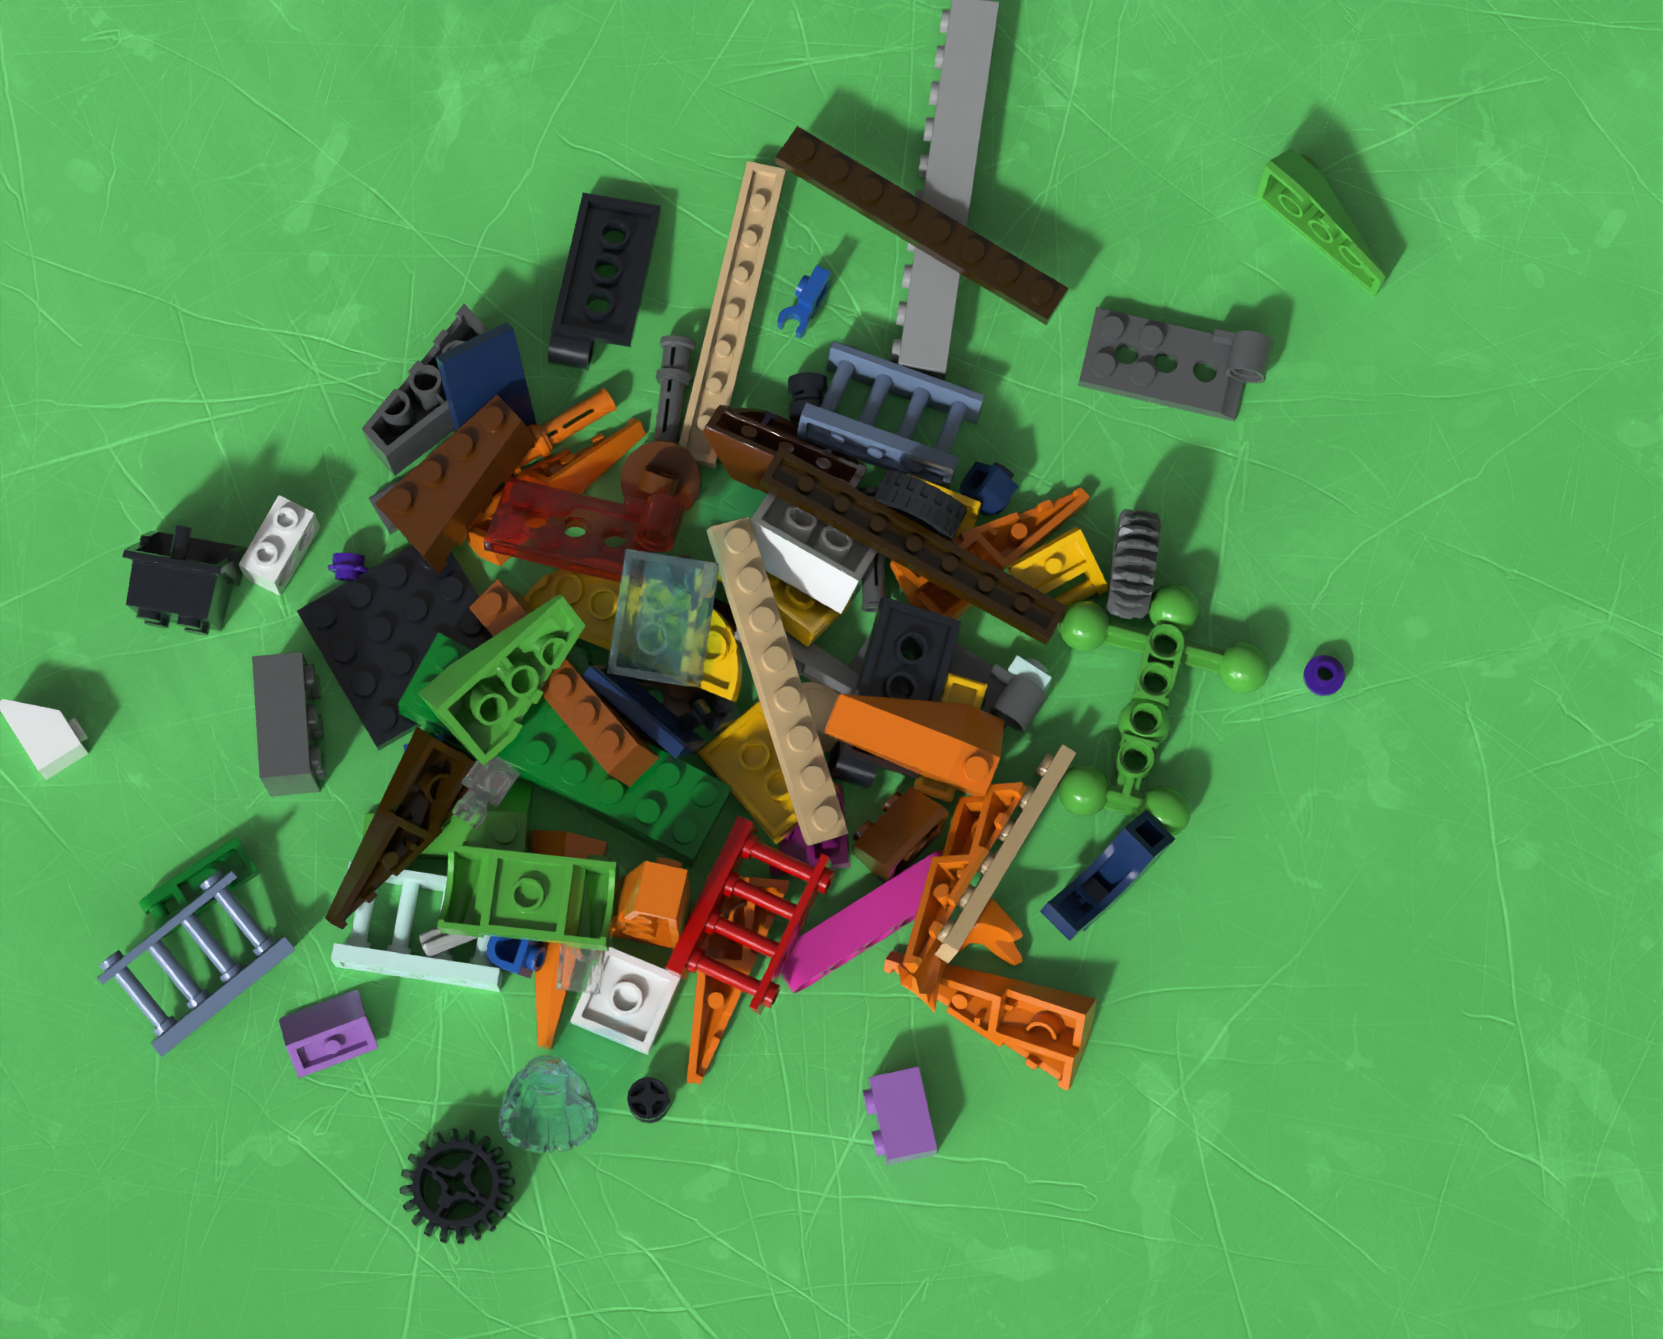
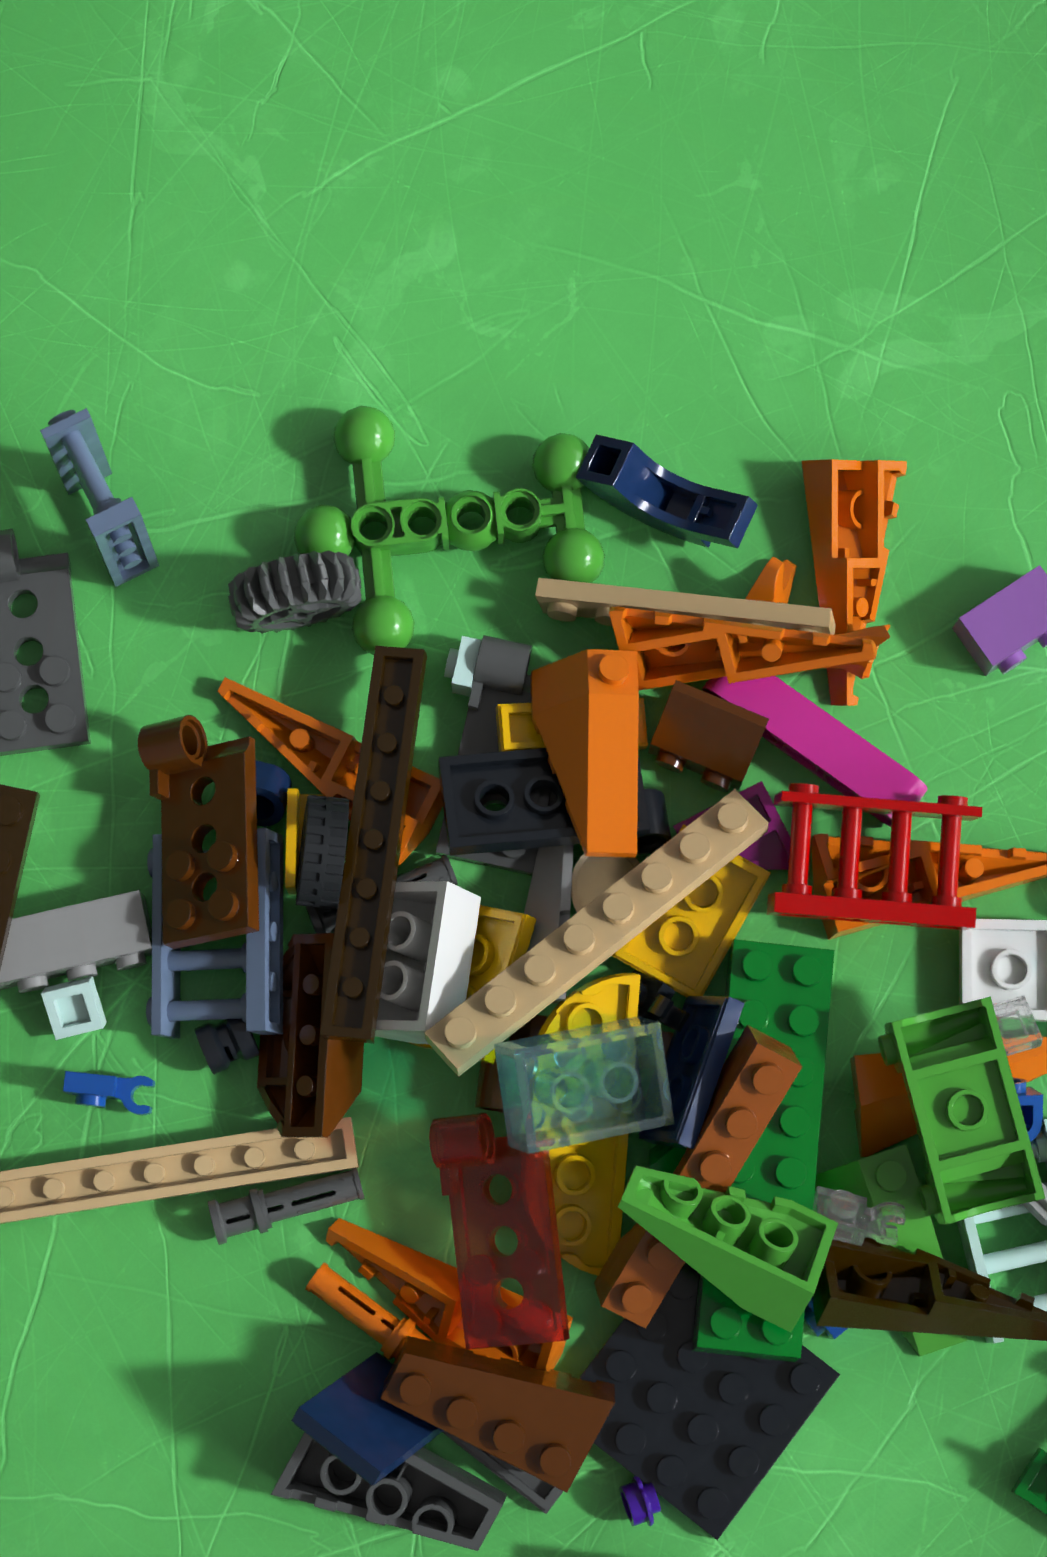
camera: 110 degrees left, 5 degrees up
(288, 724) = (865, 1484): dark grey brick -> none
(574, 324) = (243, 1351): black hinge -> none
(653, 904) = (914, 965): orange wedge -> none
(662, 469) = (392, 1173): reddish brown tile -> none
(877, 299) = (74, 1007): none -> light aqua plate
(1023, 429) = (178, 773): none -> reddish brown hinge
(1058, 563) = (325, 680): yellow plate -> none
(1256, 436) = (115, 523): none -> sand blue fence
(1319, 686) = (335, 365): dark purple plate -> none

